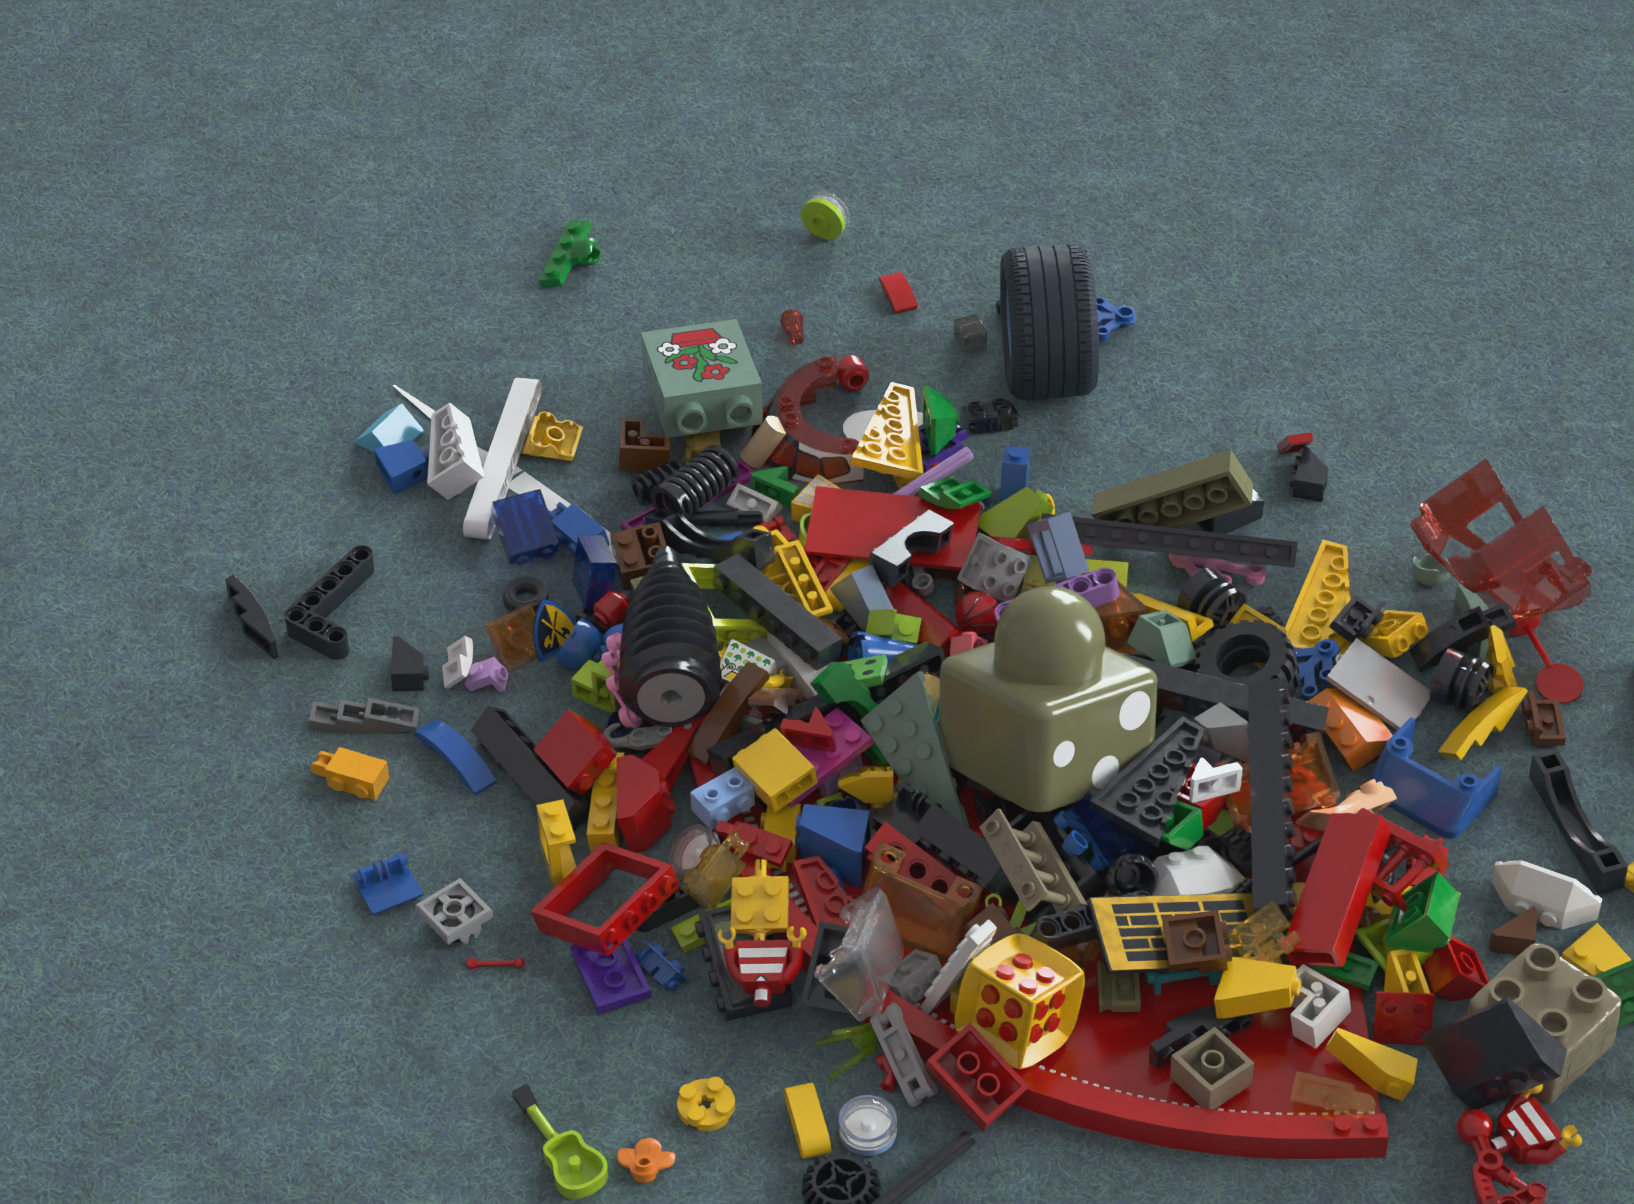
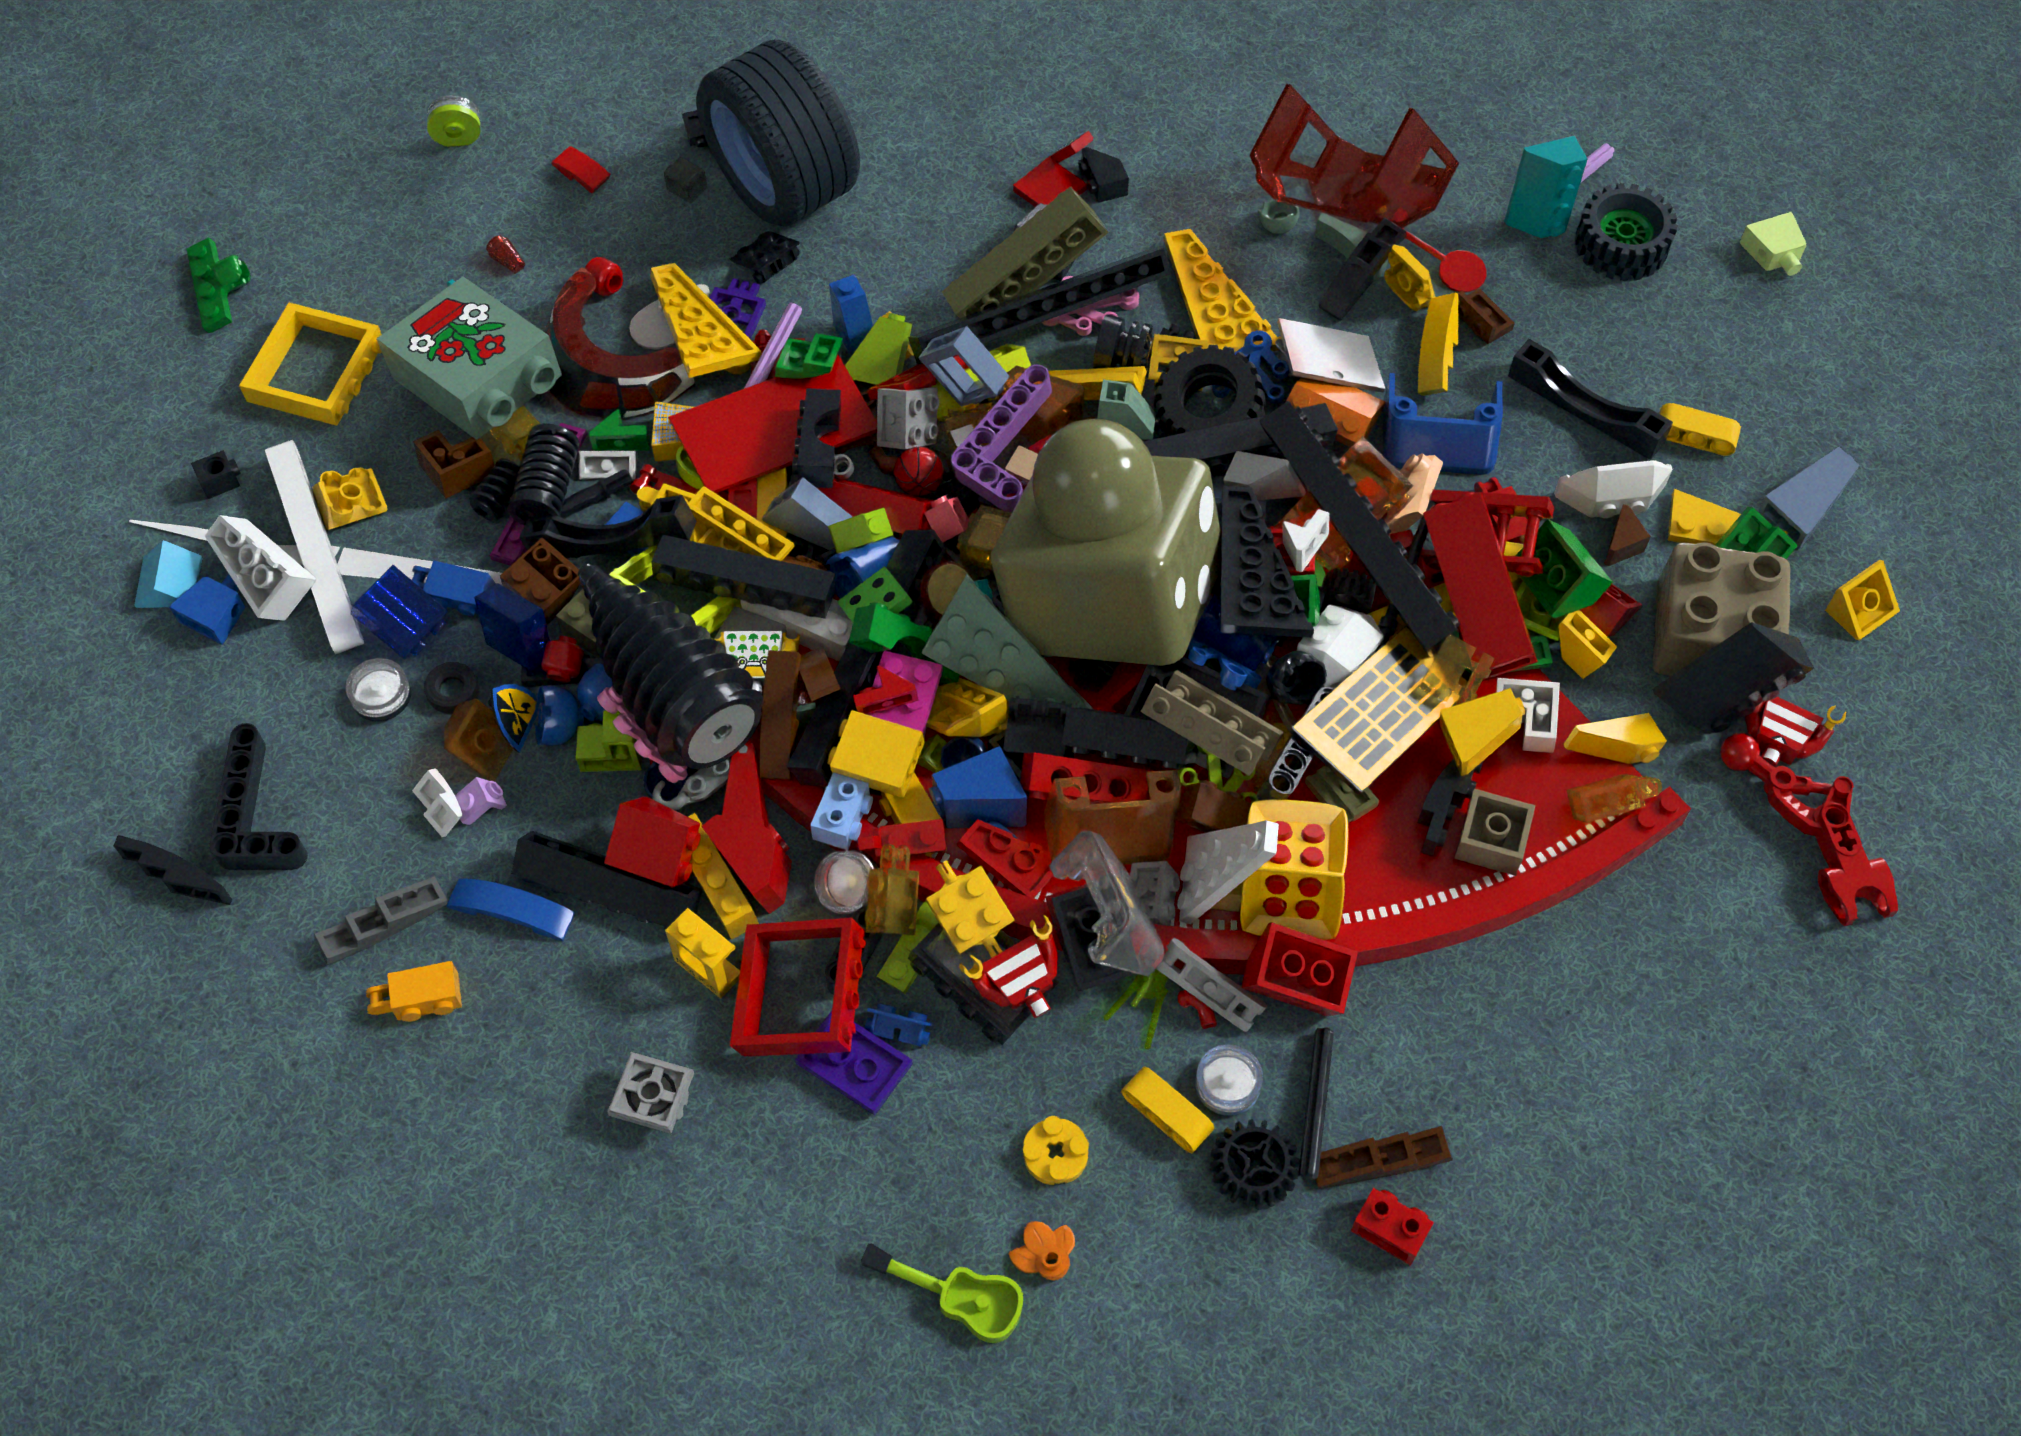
camera: 35 degrees left, 15 degrees up
(387, 884) = (550, 1099): blue hinge -> none
(407, 667) = (388, 836): black slope -> none
(472, 380) = (216, 474): none -> black brick
(472, 963) = (705, 1135): red hinge -> none
(473, 571) = (378, 689): none -> clear piece
(577, 316) = (294, 317): none -> yellow window
(763, 442) = (575, 394): tan brick -> none
(938, 419) = (728, 286): green slope -> none
(1197, 942) = (1410, 714): reddish brown plate -> none
(1264, 465) = (1047, 182): none -> red tile
(1357, 619) = (1263, 299): black bracket -> none
(1396, 633) = (1295, 294): yellow plate -> none
(1402, 1017) = (1604, 679): red hinge -> none
(1456, 679) = (1395, 314): black wheel -> none

